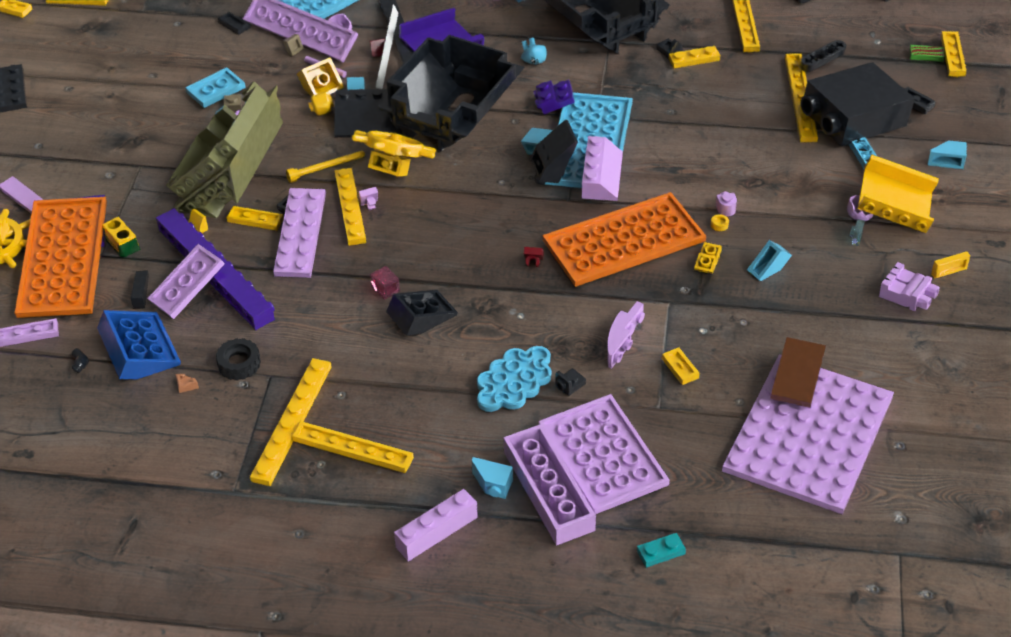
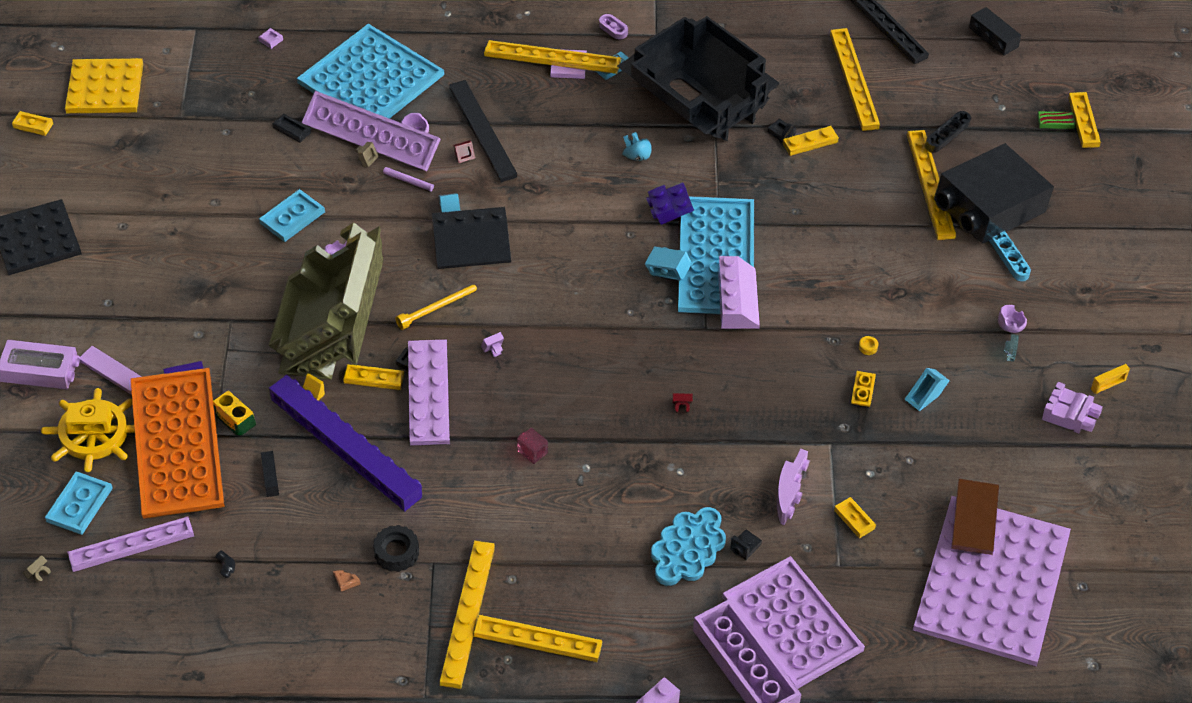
camera: 10 degrees left, 5 degrees up
(137, 343) = (284, 539): blue slope -> none
(186, 281) = (321, 462): lavender plate -> none
(233, 102) = (315, 232): dark tan plate -> none
(320, 78) = (408, 197): yellow slope -> none
(321, 103) = (416, 229): yellow head -> none
(350, 207) = (474, 355): yellow plate -> none
(387, 47) = (474, 152): white sticker -> none
(388, 151) = (510, 286): yellow piece -> none
(419, 311) = (576, 476): black slope -> none
(433, 81) = (538, 192): black panel -> none
(436, 27) = (529, 136): dark purple panel -> none
(493, 477) = (687, 659): medium azure slope -> none
(553, 154) = (687, 281): black slope -> none
(623, 239) = (772, 373): orange plate -> none
(726, 203) = (872, 322): lavender plate -> none
(897, 193) = (1047, 299): yellow panel -> none
(921, 103) = (1060, 183): black hinge -> none
(949, 154) = (1095, 247): medium azure slope -> none

